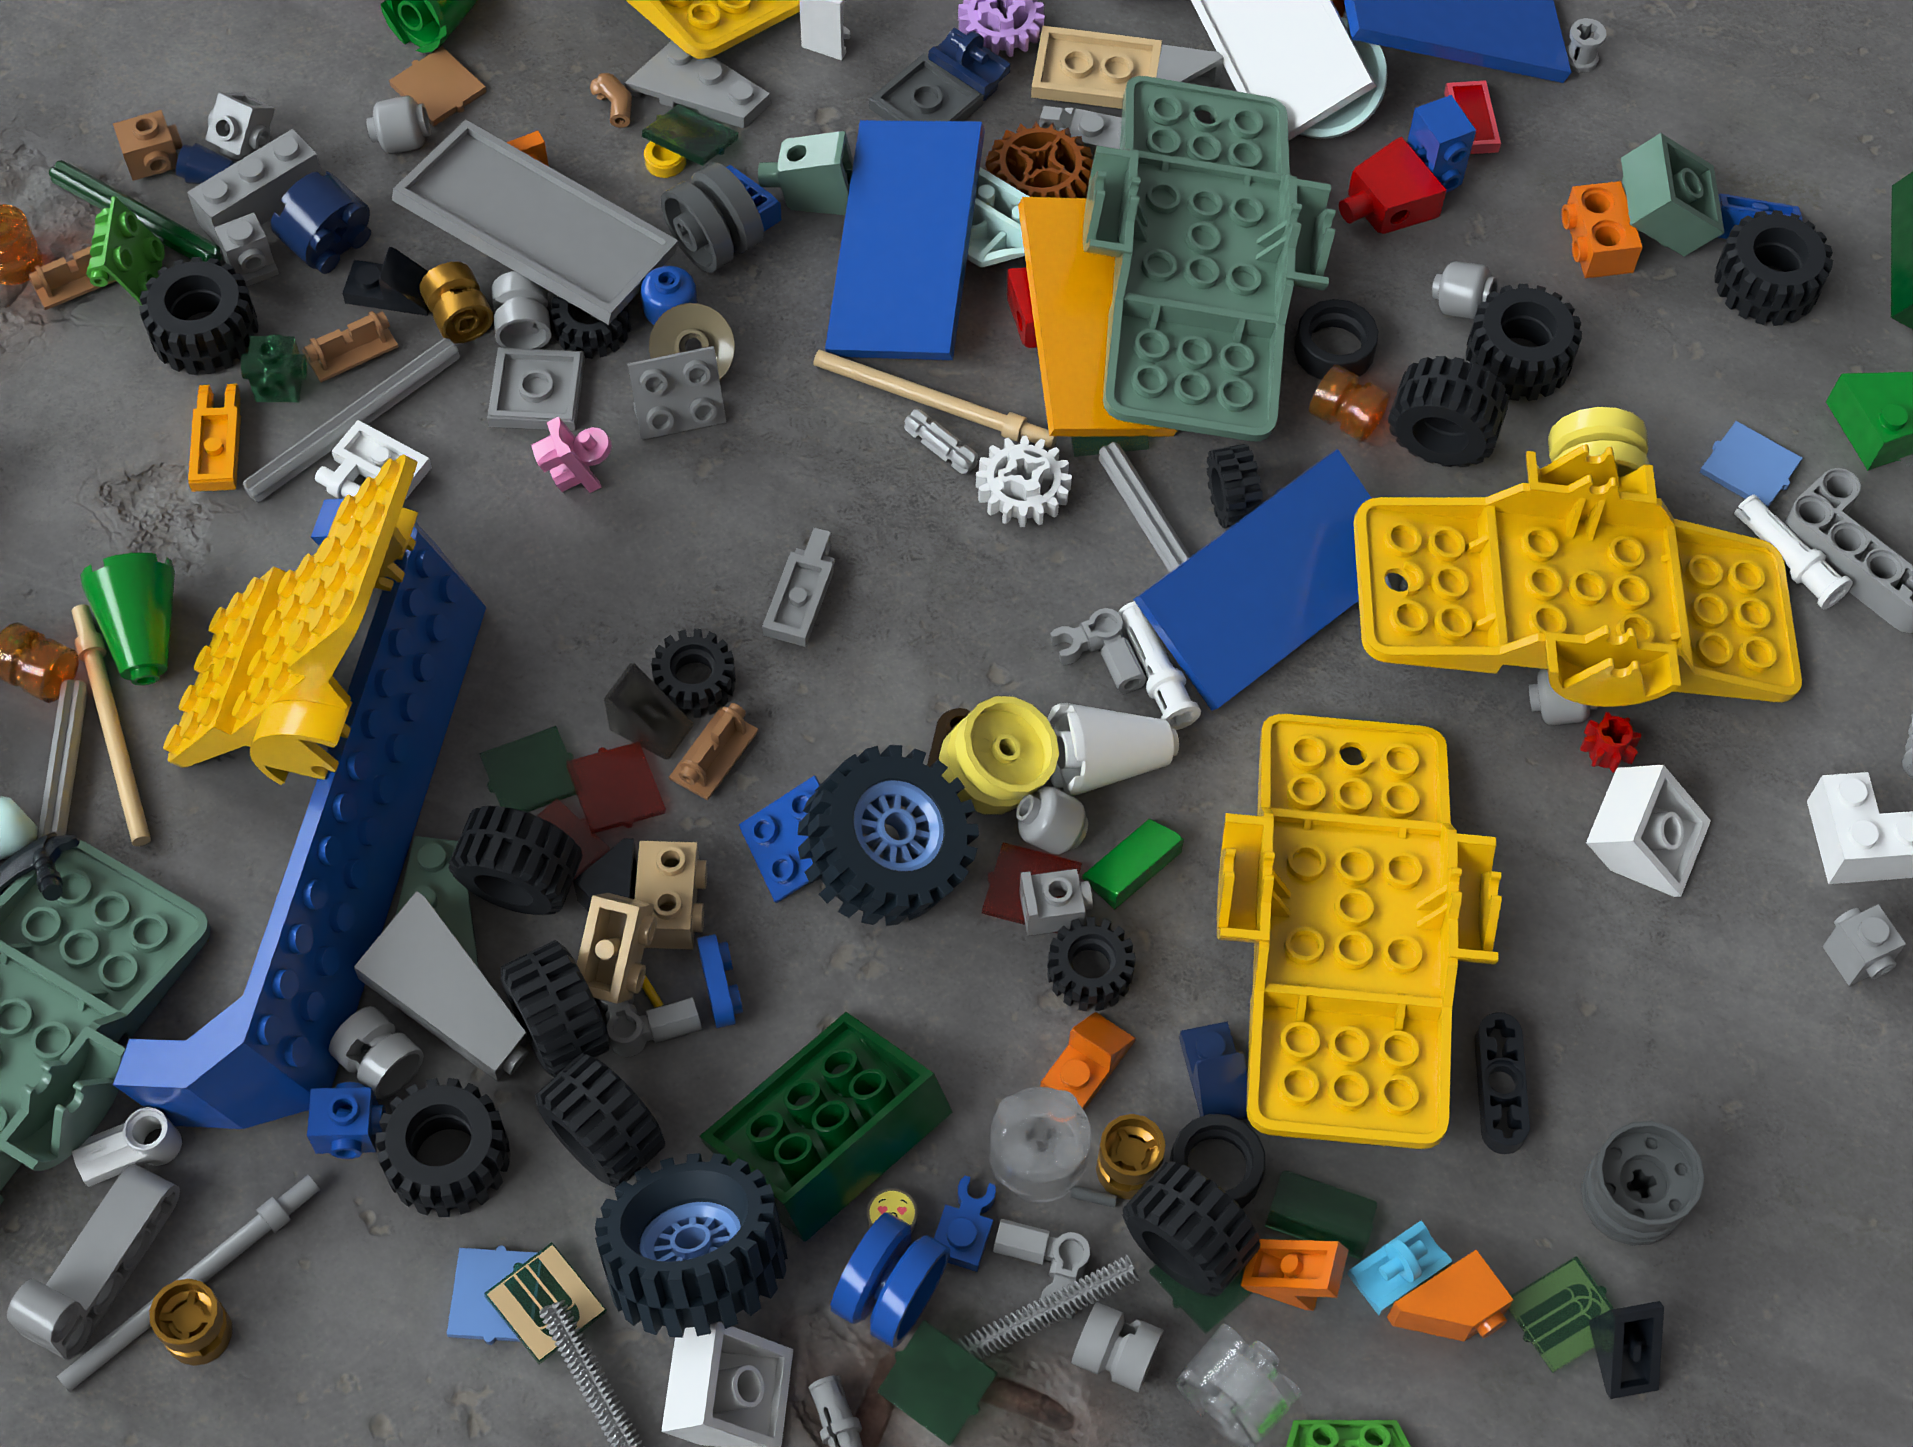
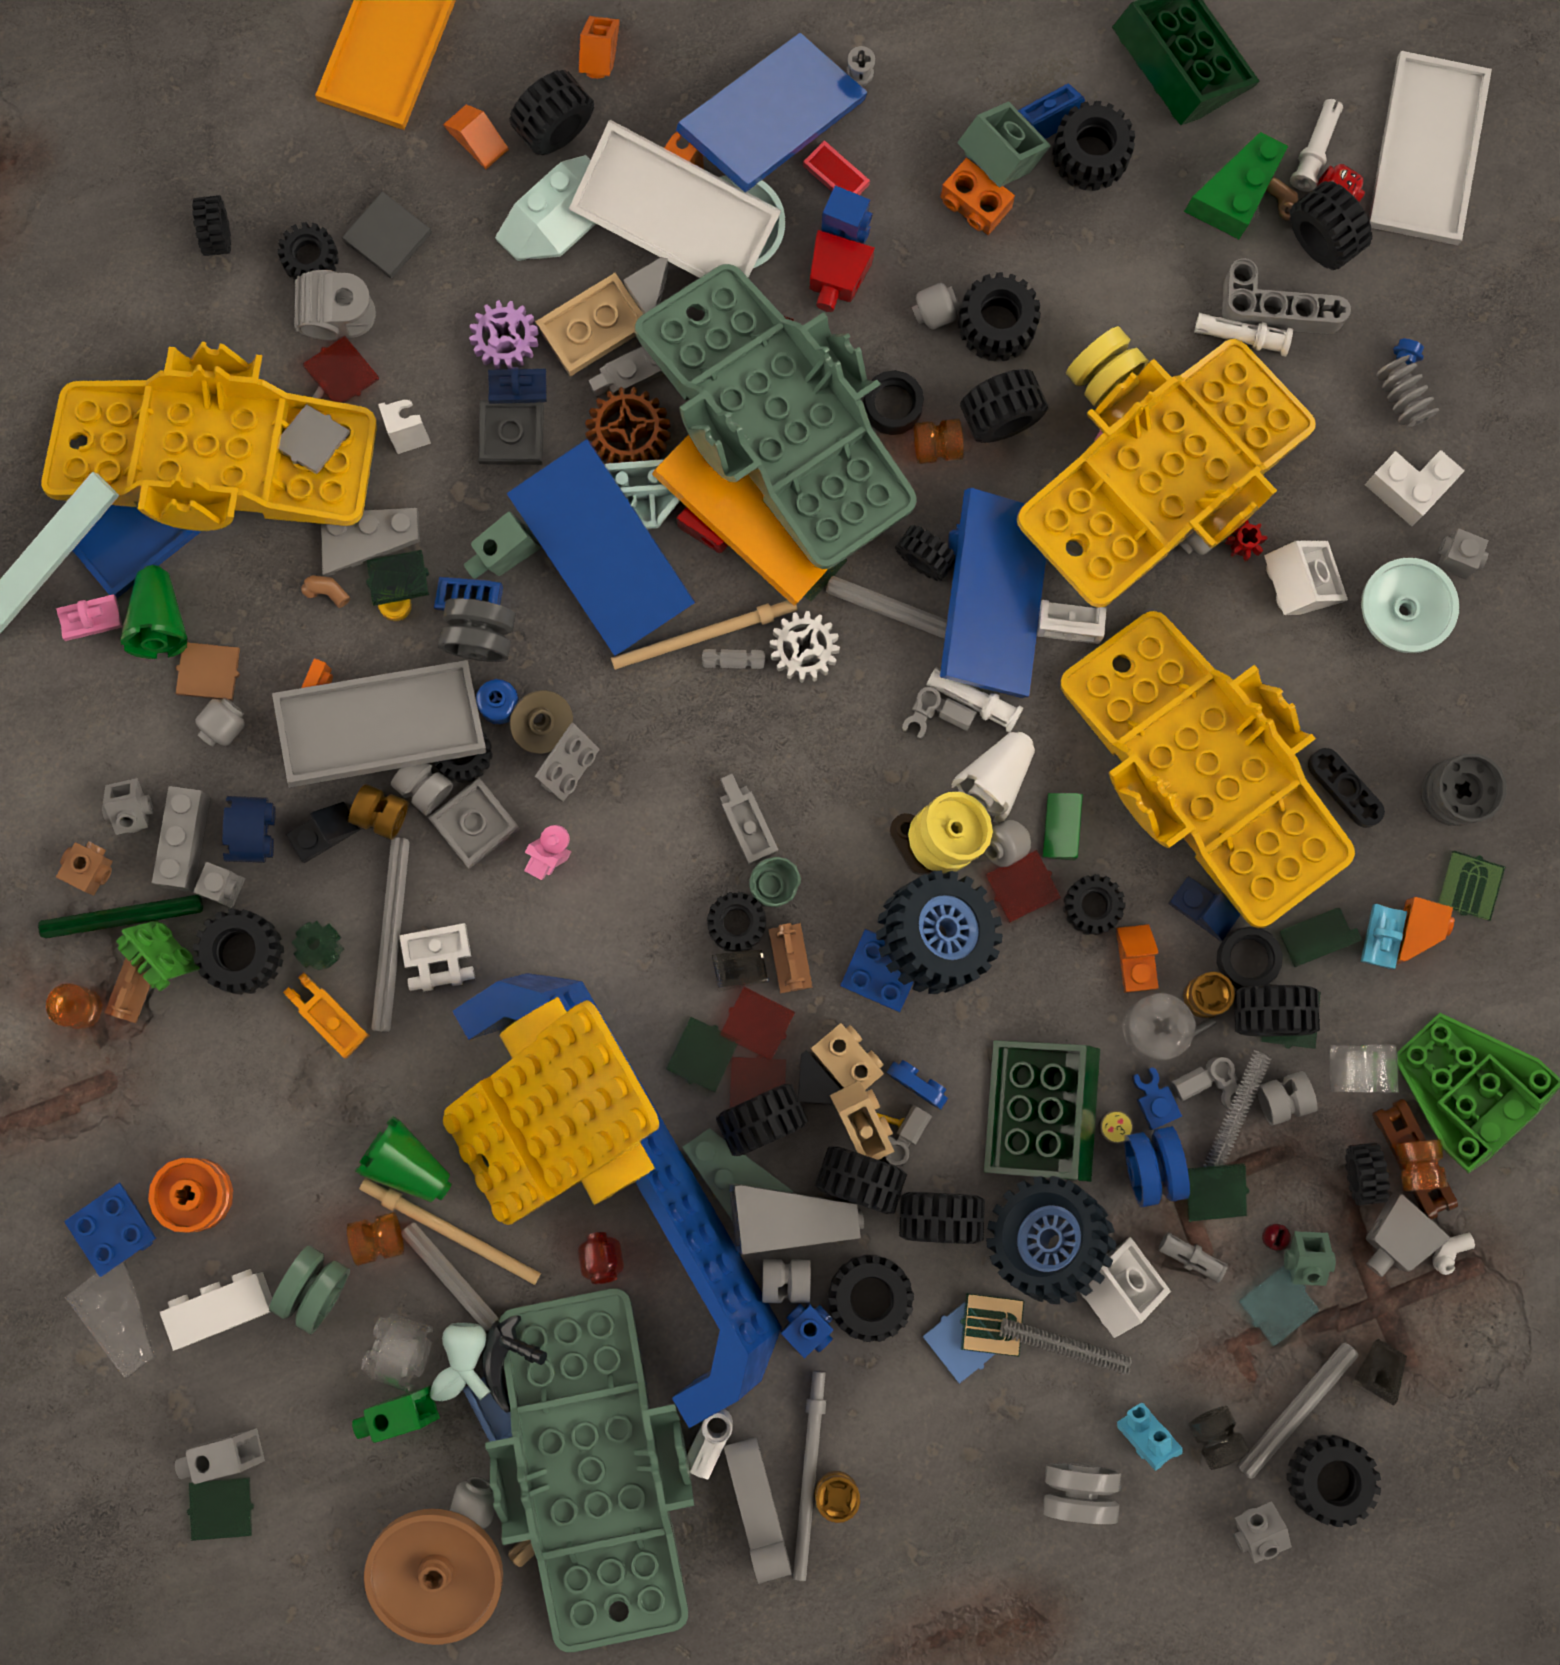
camera: 45 degrees left, 20 degrees up
(199, 163) = (133, 849): dark blue cone -> none
(219, 868) = (600, 1258): none -> clear red head
(347, 349) = (341, 891): medium nougat hinge -> none
(769, 662) = (774, 881): none -> sand green hair
(1046, 913) = (1042, 898): light grey brick -> none
(1296, 1271) = (1340, 980): orange slope -> none
(1332, 674) = (1071, 622): none -> white hinge
(1629, 1348) = (1518, 879): black slope -> none
(1750, 464) = (1176, 290): medium blue piece -> none
(1762, 924) = (1423, 591): none -> light aqua dish

